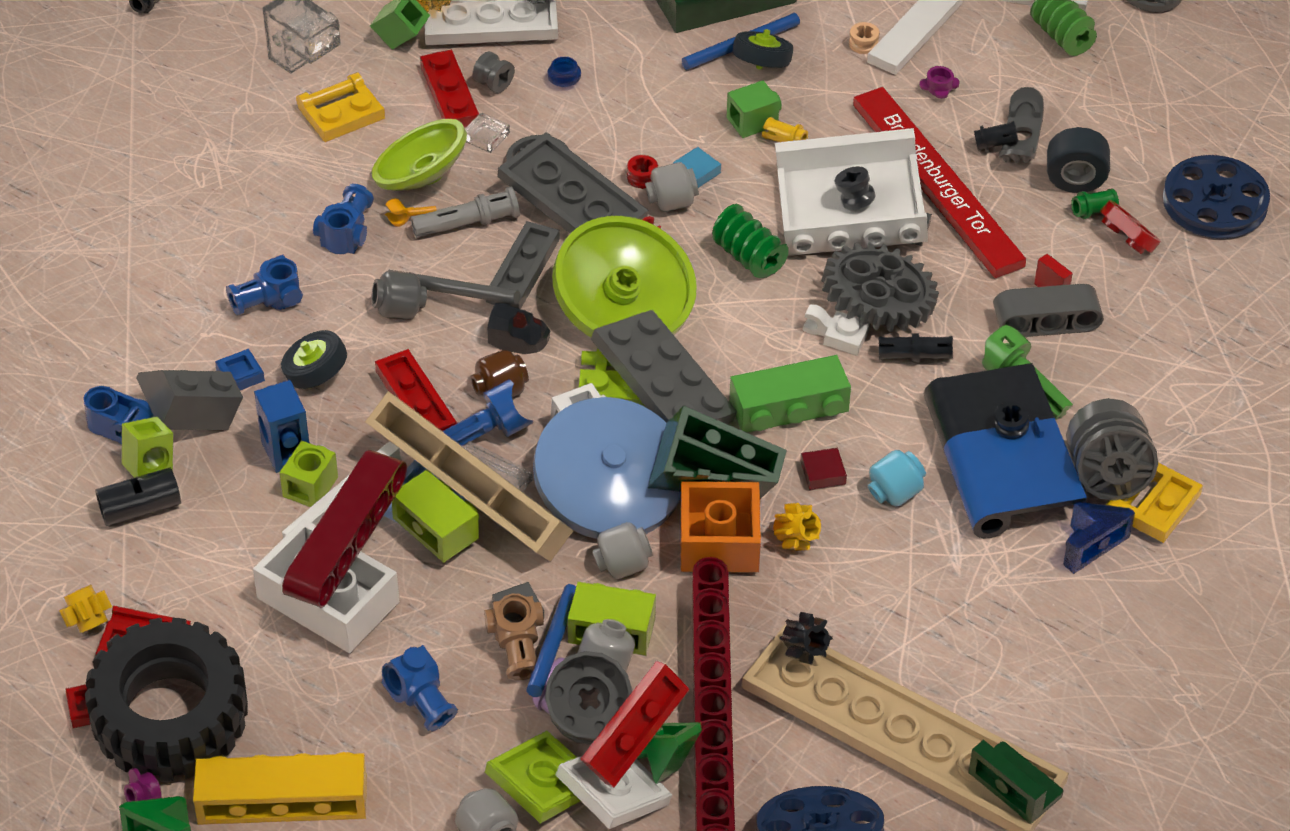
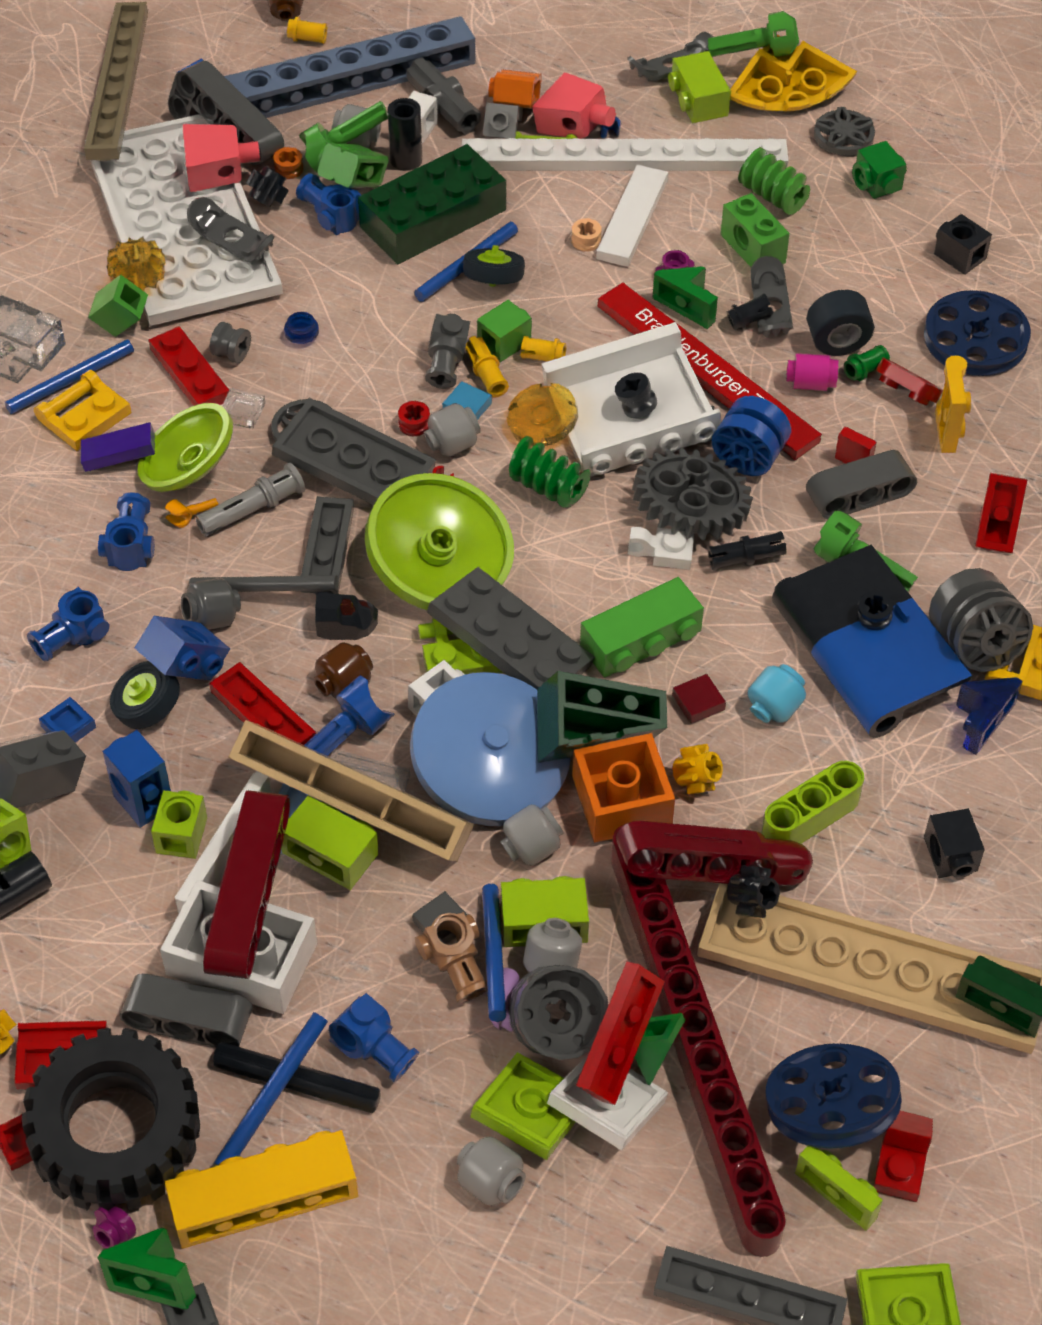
camera: 15 degrees left, 5 degrees up
(264, 630) = (185, 1011): none -> dark grey beam
(320, 706) = (273, 1088): none -> blue bar
(338, 75) = (69, 376): none -> blue bar
(343, 707) = (304, 1080): none -> black axle
(358, 324) = (182, 648): none -> blue brick
(360, 144) = (117, 447): none -> dark purple tile
(691, 114) = (446, 349): none -> dark grey connector
(726, 138) = (486, 366): none -> yellow axle
(764, 189) = (543, 414): none -> clear yellow tile
(771, 586) = (708, 853): none -> dark red piece
(894, 582) = (820, 791): none -> lime beam
(940, 107) = (685, 293): none -> green slope
(953, 245) = (751, 435): none -> blue wheel
(1018, 642) = (954, 843): none -> black brick
(1026, 61) = (753, 230): none -> bright green brick
(1037, 201) = (812, 372): none -> dark pink brick
(1161, 253) = (952, 405): none -> yellow plate
(1172, 29) = (879, 170): none -> green brick
(1174, 361) = (1001, 512): none -> red slope
(1231, 112) = (962, 243): none -> black brick

